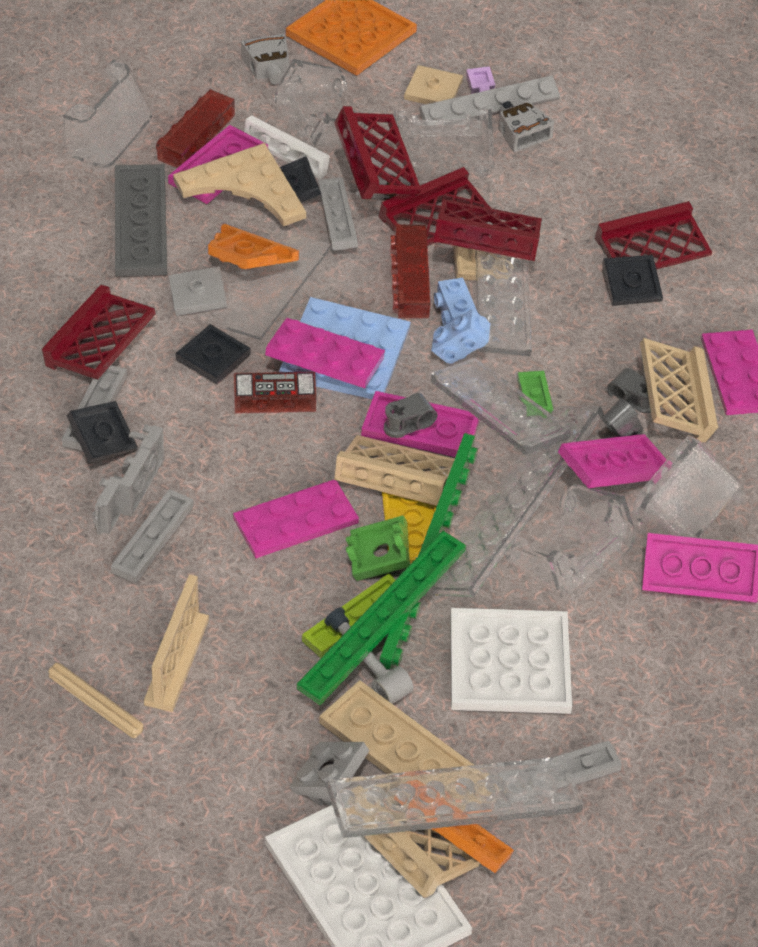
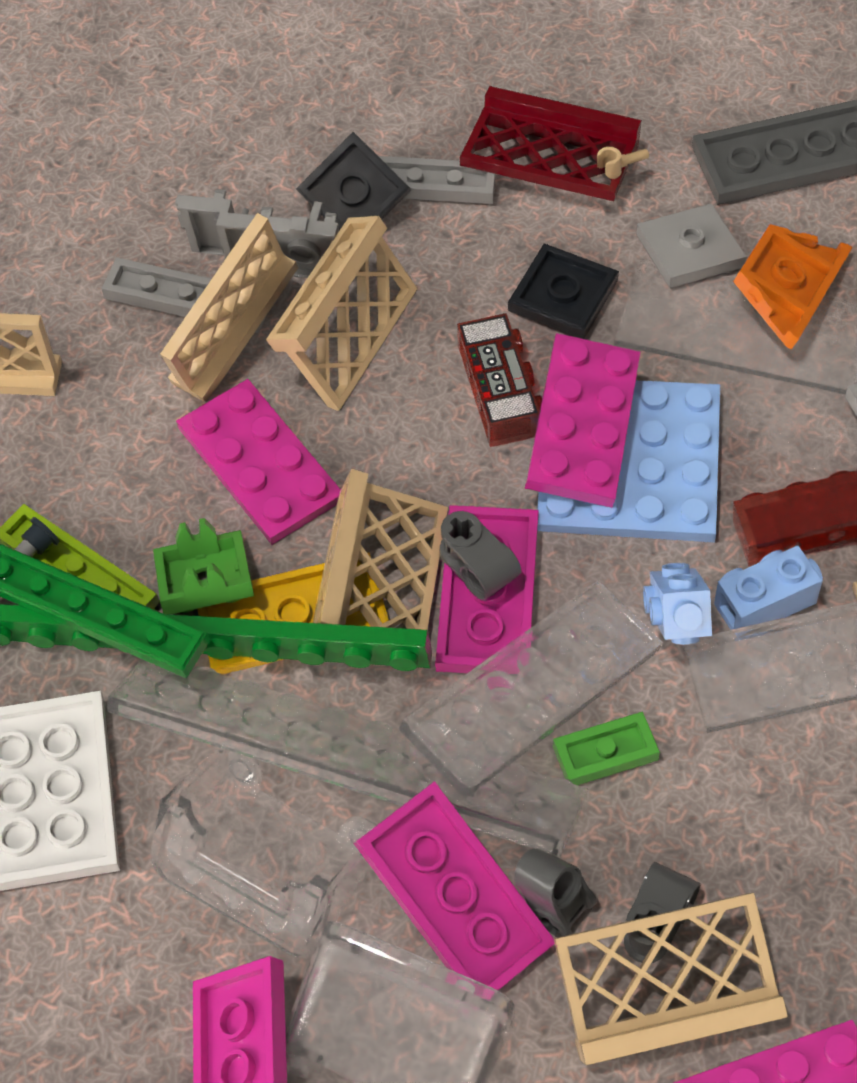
camera: 85 degrees right, 10 degrees up
(132, 299) = (613, 160): none -> tan hand
(182, 496) = (228, 311): none -> tan fence
(205, 439) = (329, 288): none -> tan fence

